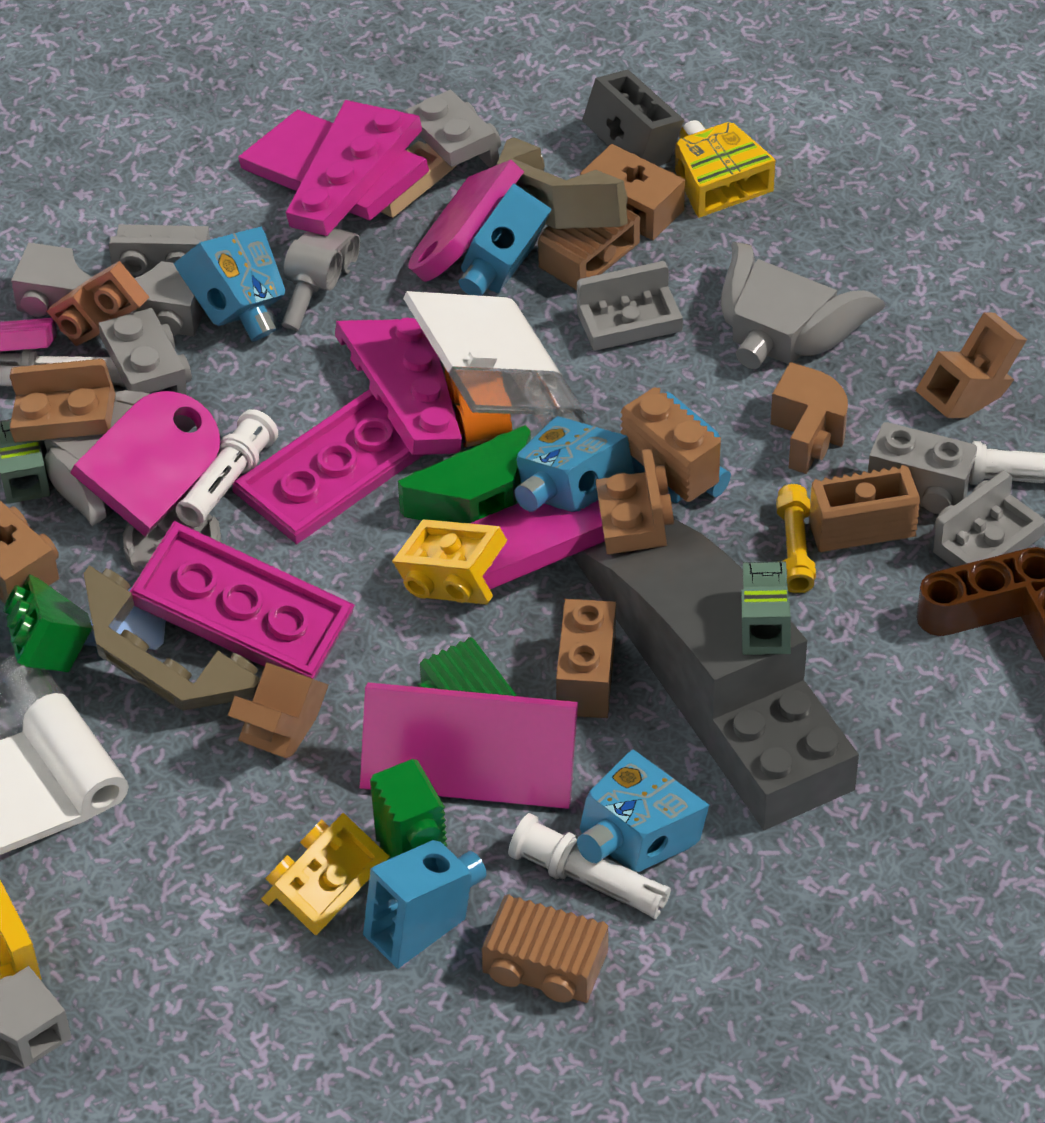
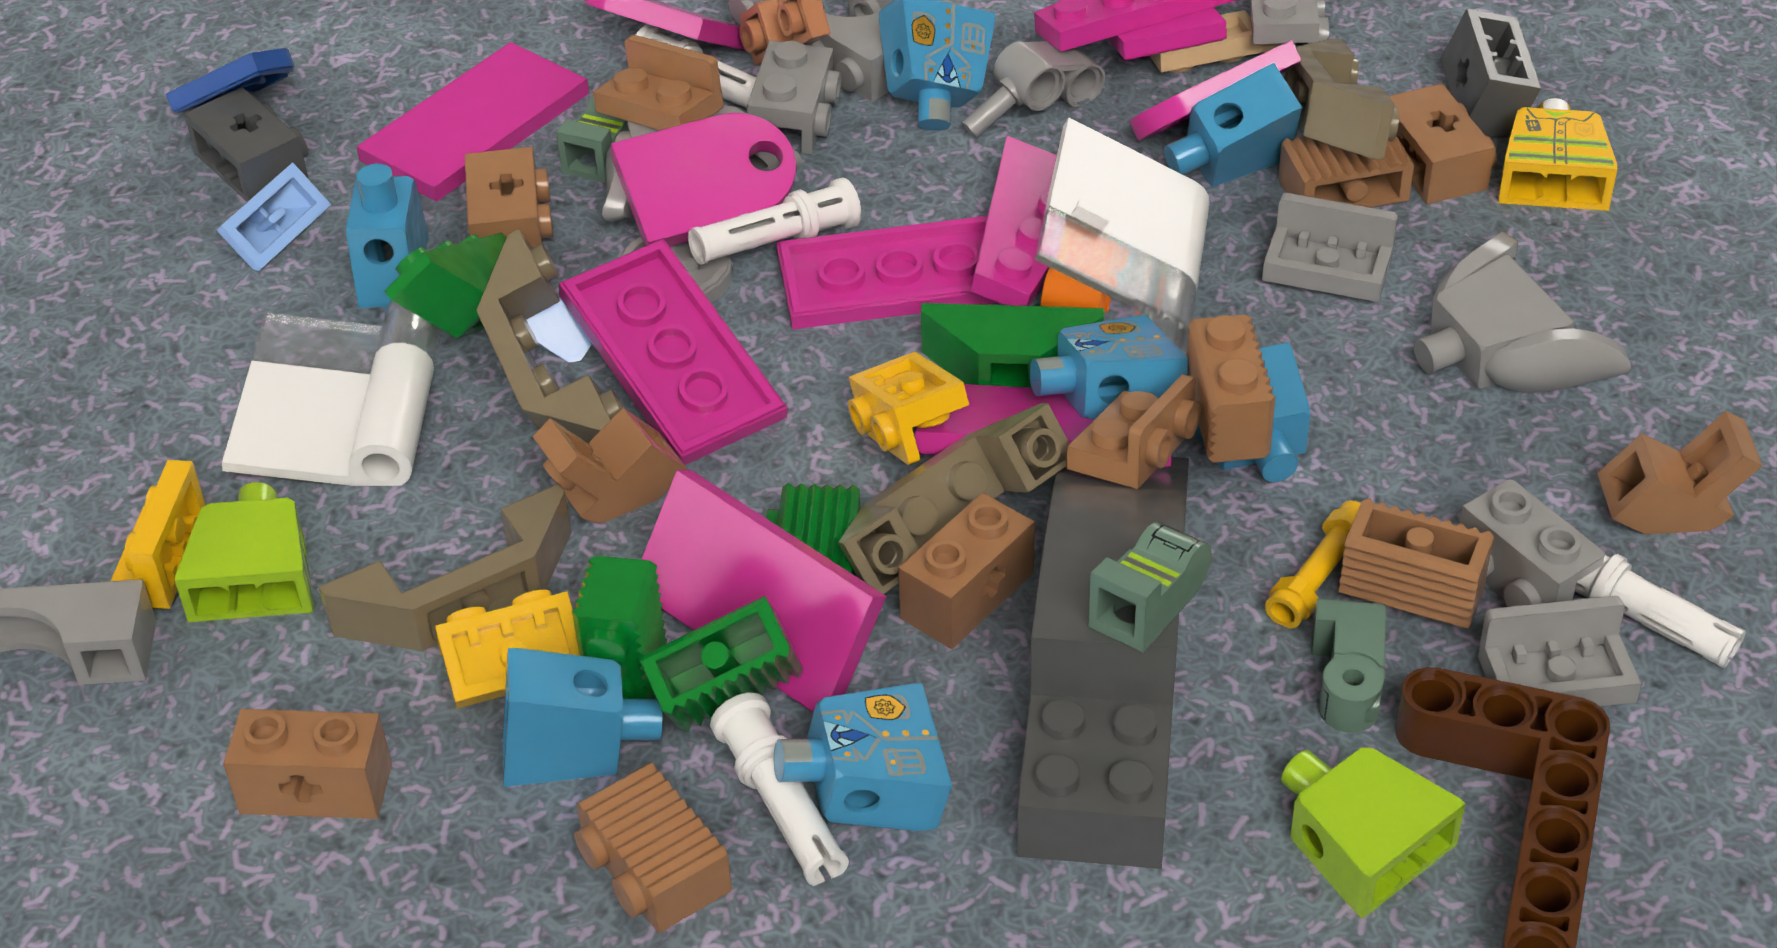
camera: 35 degrees right, 5 degrees down
(76, 910) = (245, 559): none -> lime torso
(209, 895) = (374, 610): none -> dark tan slope
(268, 1024) = (308, 763): none -> medium nougat brick
(499, 804) = (719, 661): none -> green brick
(554, 563) = (999, 458): none -> dark tan slope
(812, 408) = (1446, 439): medium nougat brick -> none
(870, 594) = (1356, 672): none -> sand green leg
(958, 694) = (1369, 823): none -> lime torso

